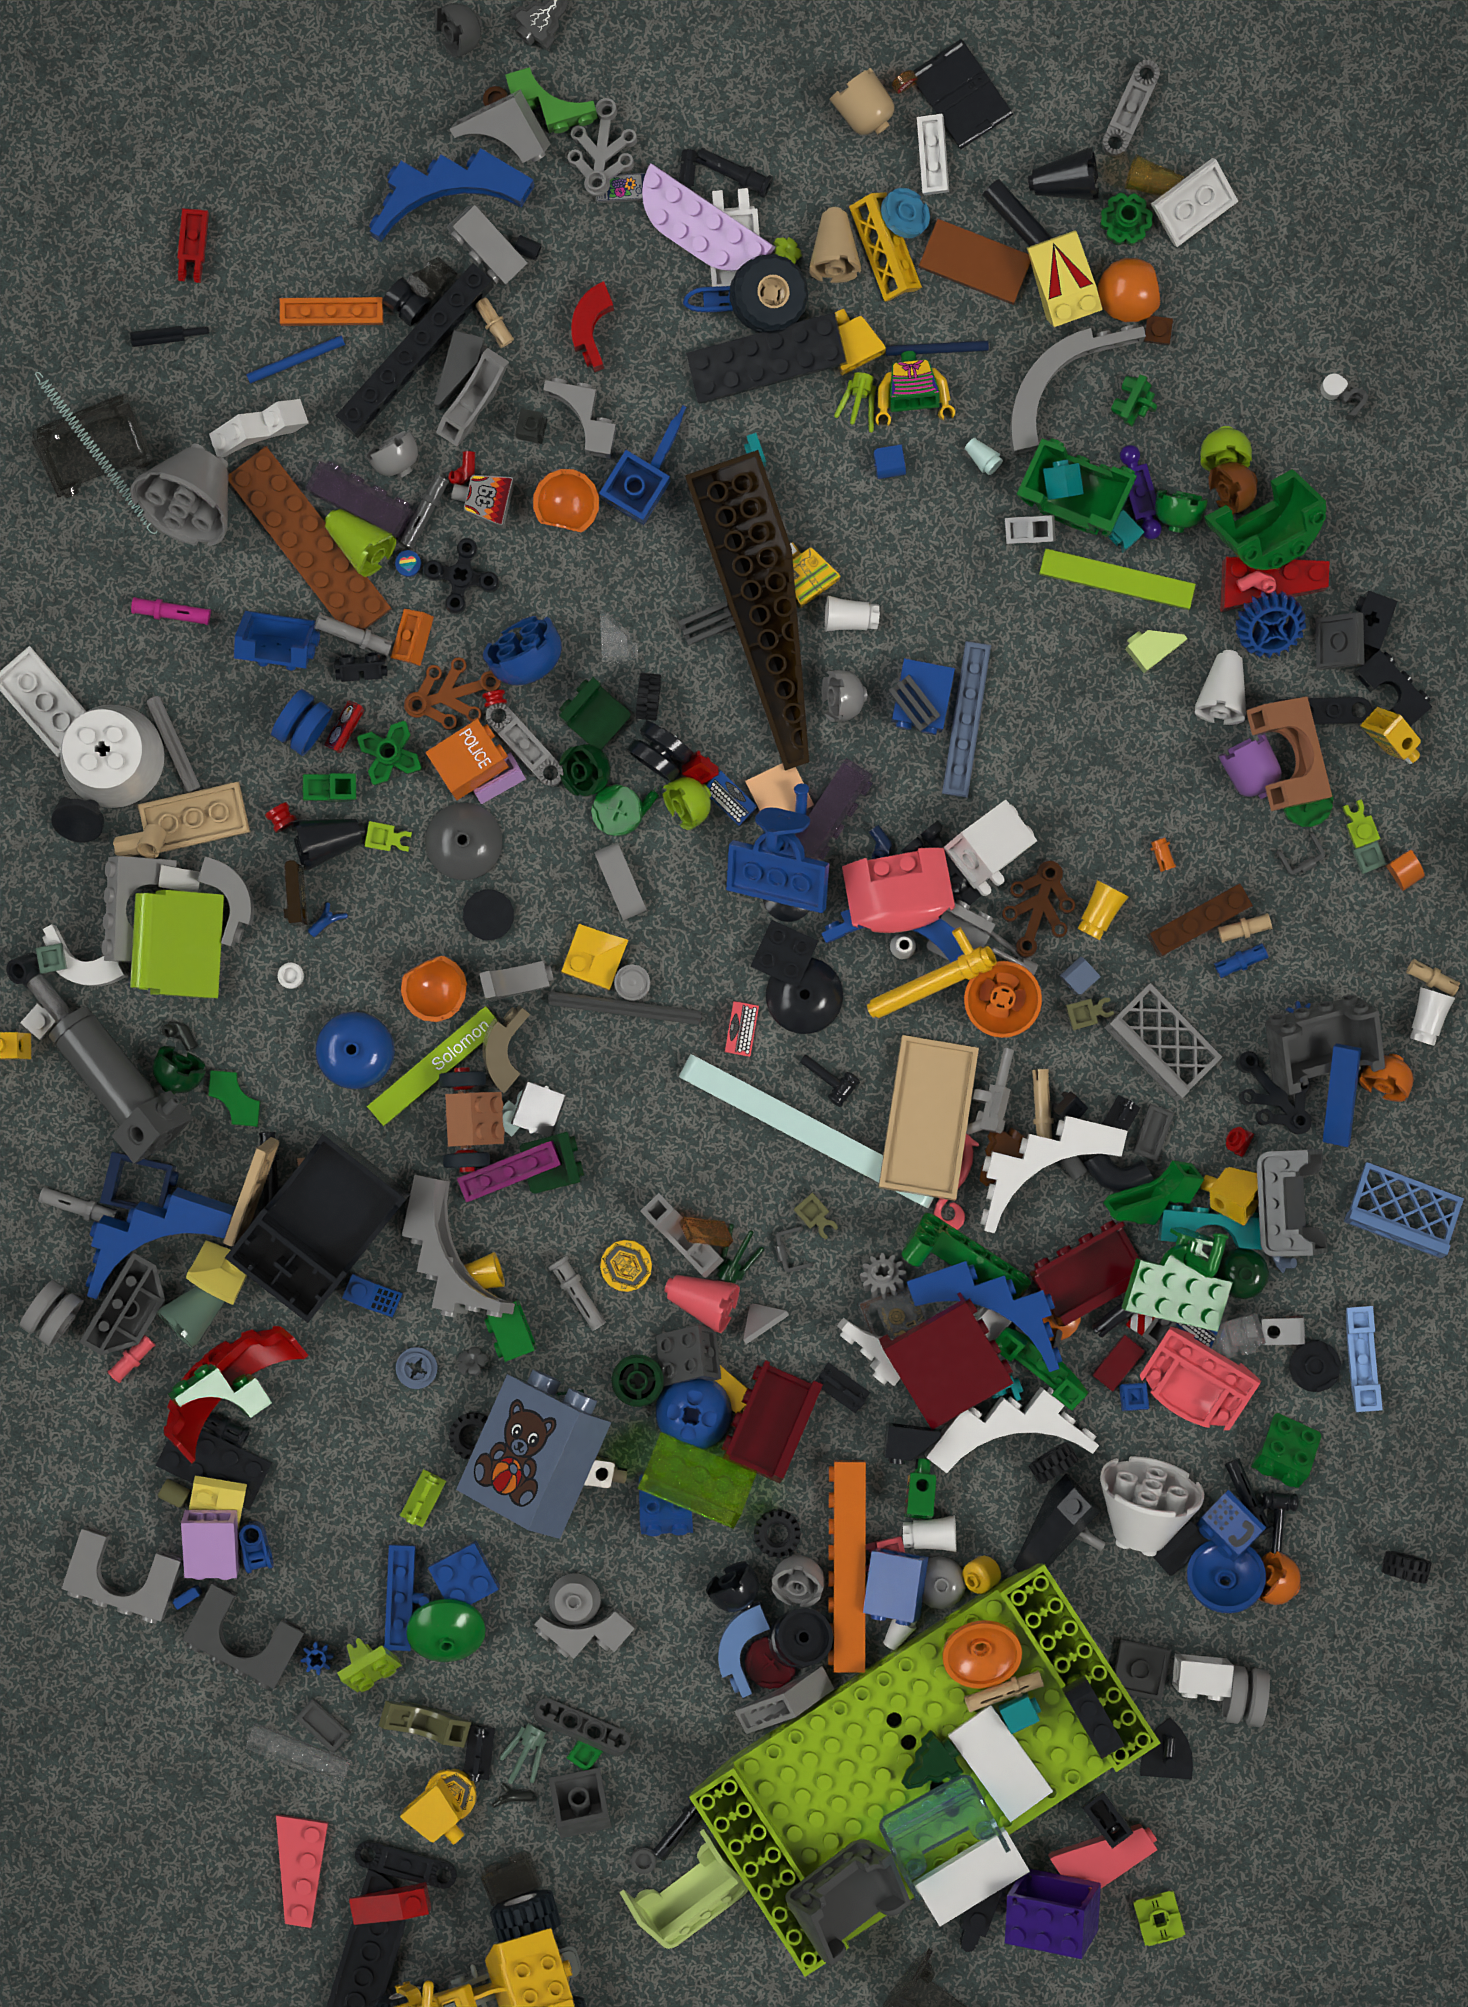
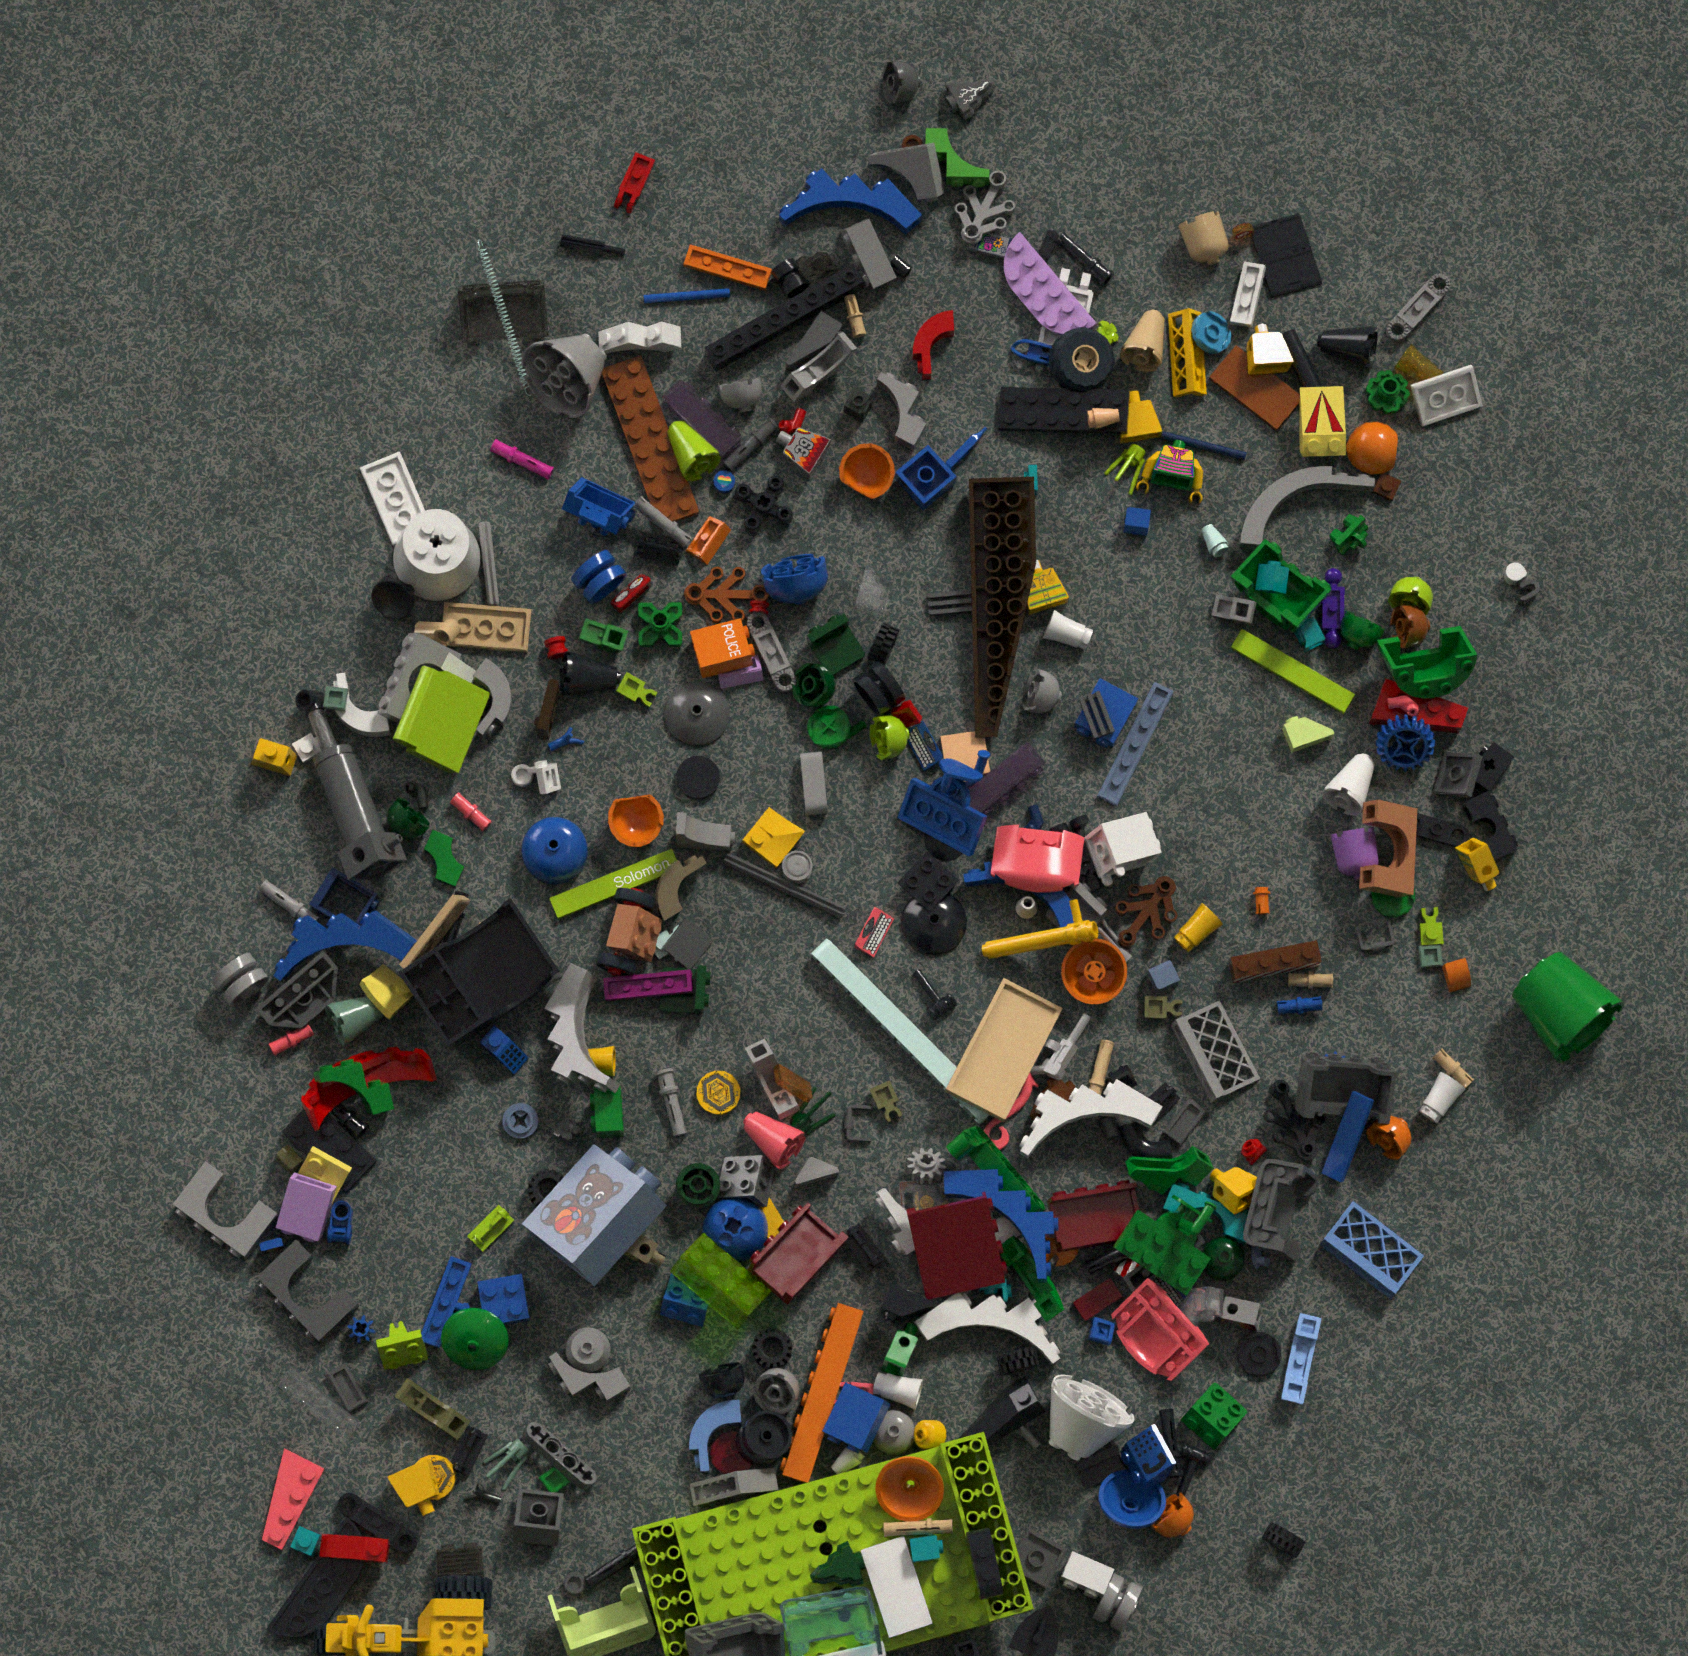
camera: 15 degrees right, 10 degrees down
(246, 1036) = (470, 811): none -> coral pin
(318, 969) = (546, 775): none -> white bracket
(334, 1912) = (306, 1541): none -> teal brick
(814, 355) = (1102, 417): none -> light nougat cone
(976, 216) = (1267, 352): none -> yellow torso

